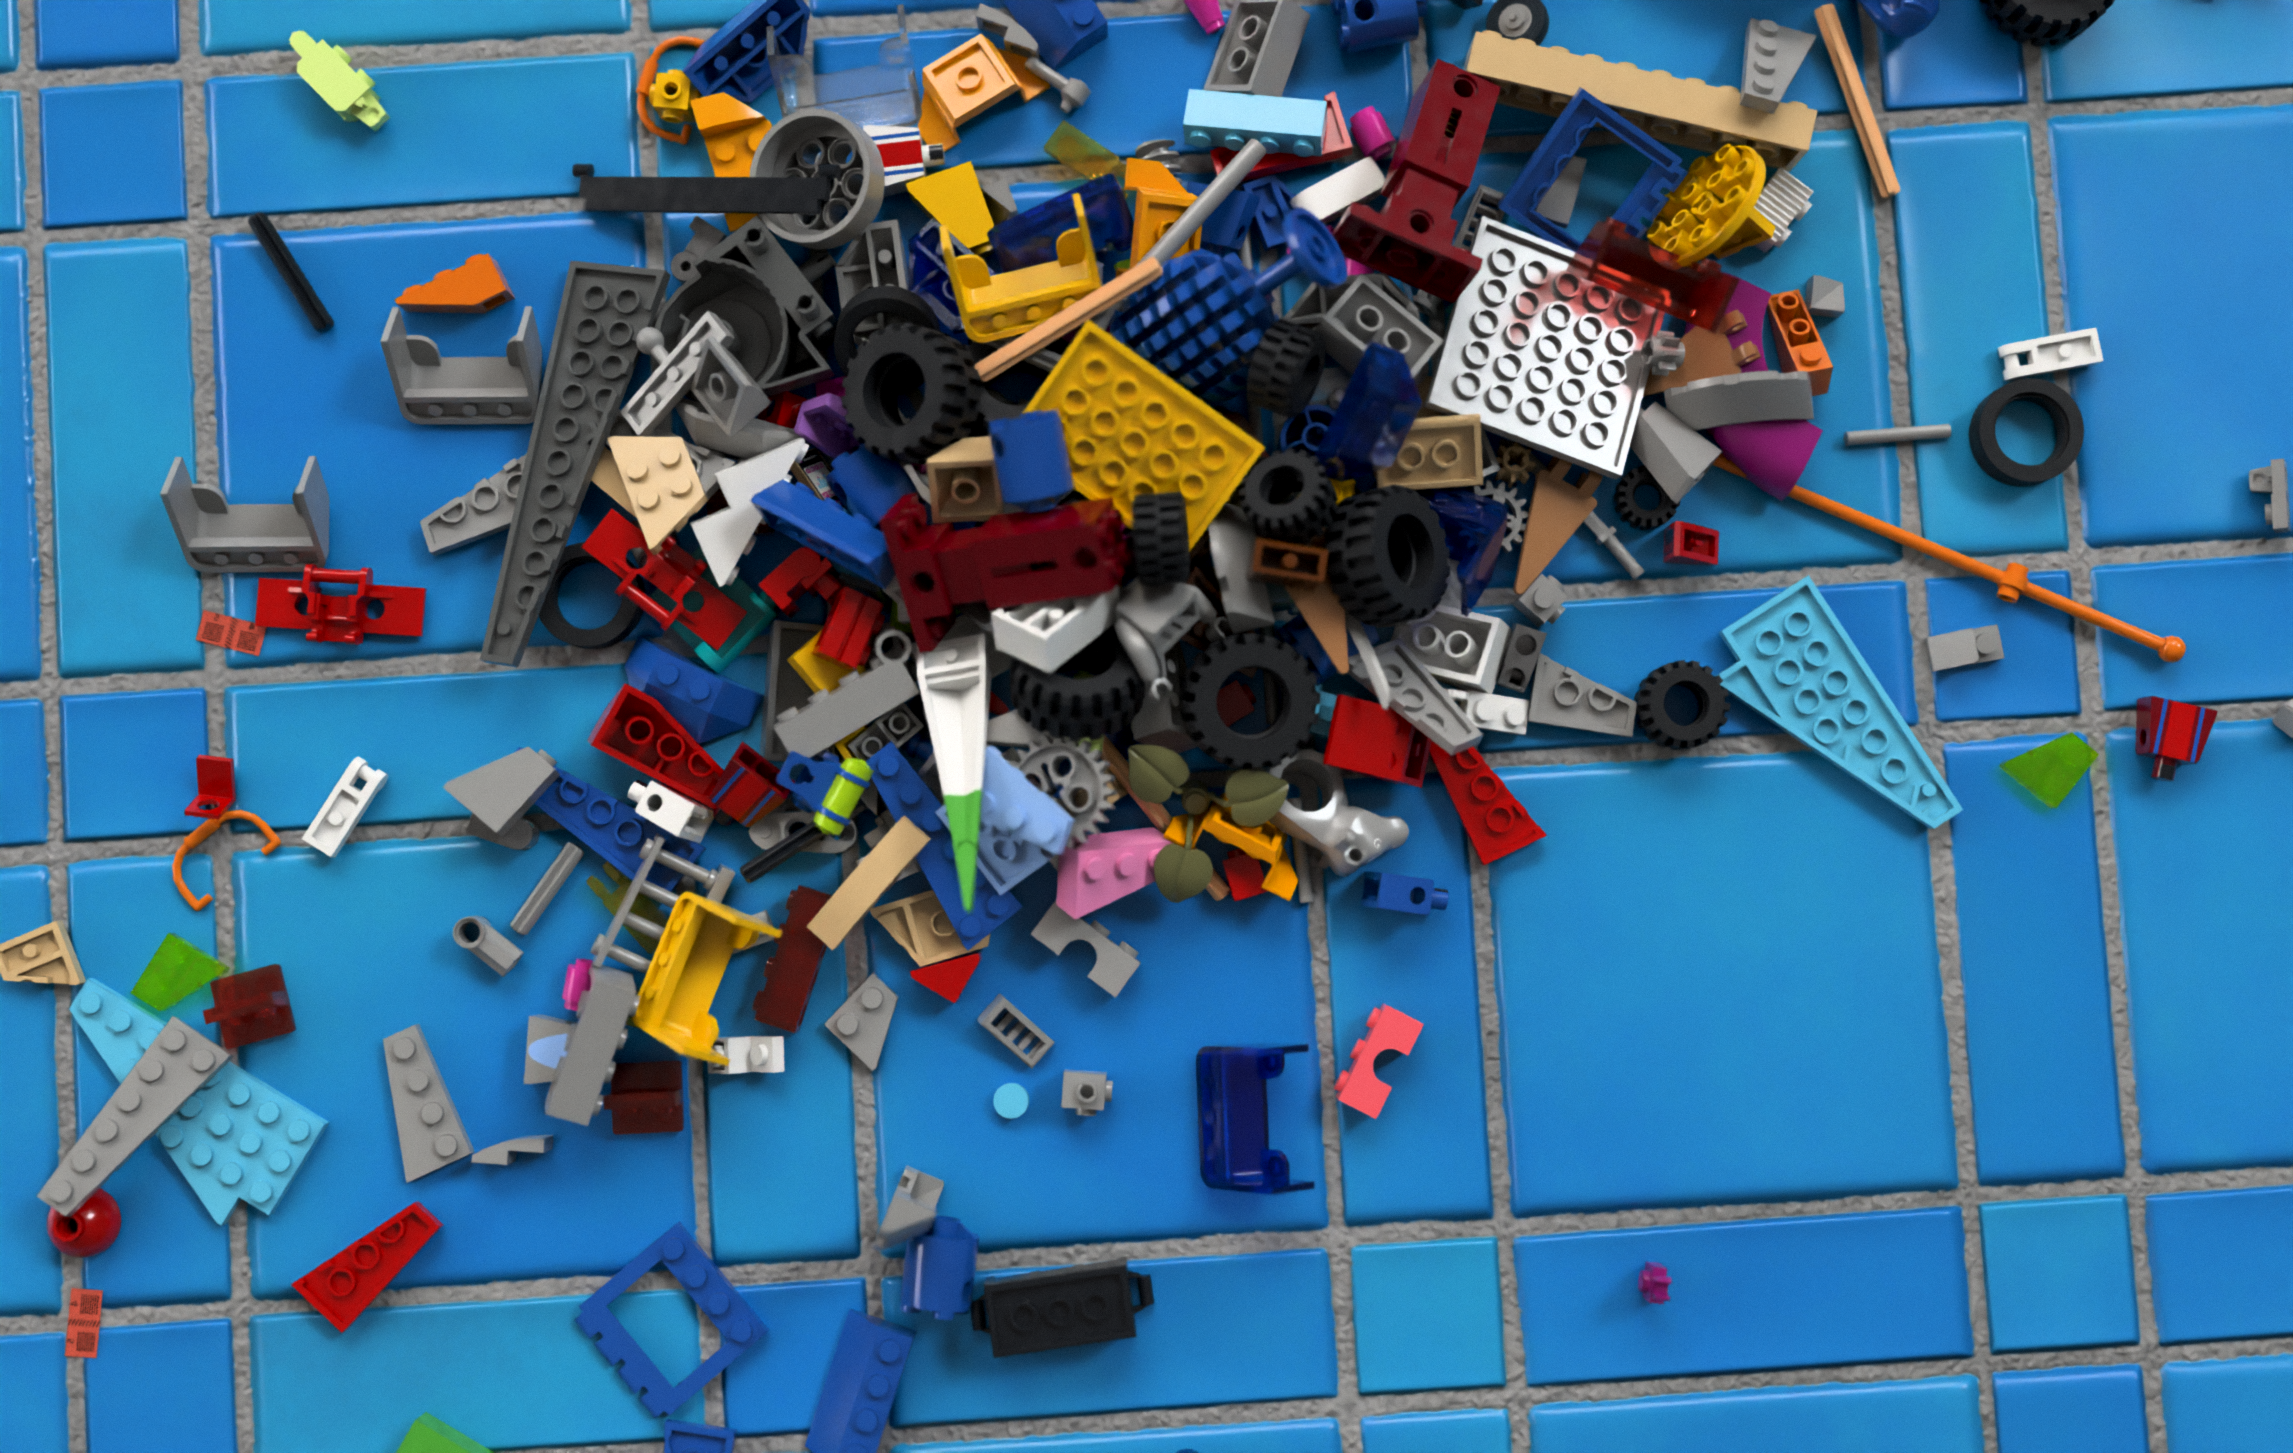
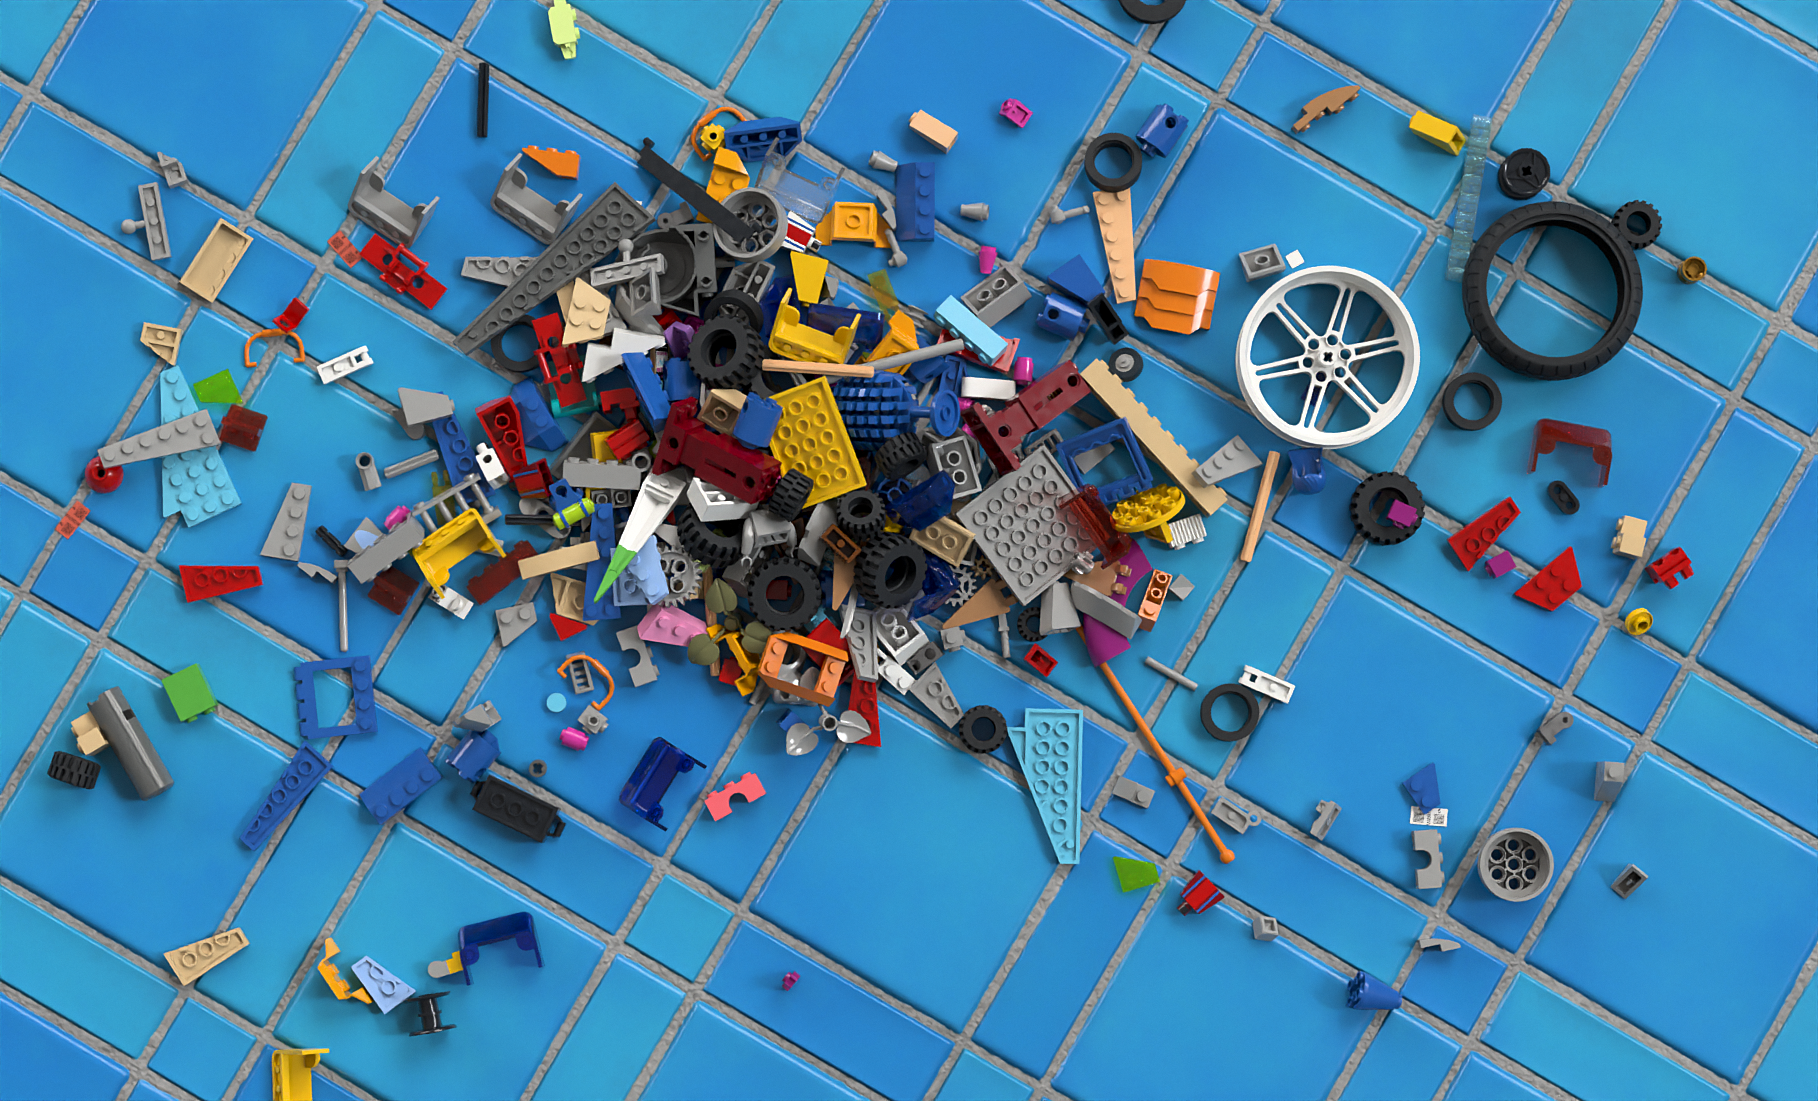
camera: 30 degrees right, 0 degrees up
(41, 780) = (216, 260): none -> tan slope
(503, 1087) = (333, 542): none -> black axle
(549, 1123) = (342, 568): none -> light grey piece
(1038, 1004) = (599, 667): none -> orange piece
(1060, 1215) = (532, 767): none -> dark grey bush
(1075, 1138) = (574, 739): none -> dark pink brick
(1402, 781) = (828, 676): none -> orange wedge
(1481, 841) = (849, 729): none -> light grey plant
(2140, 581) = (1234, 816): none -> light grey hinge

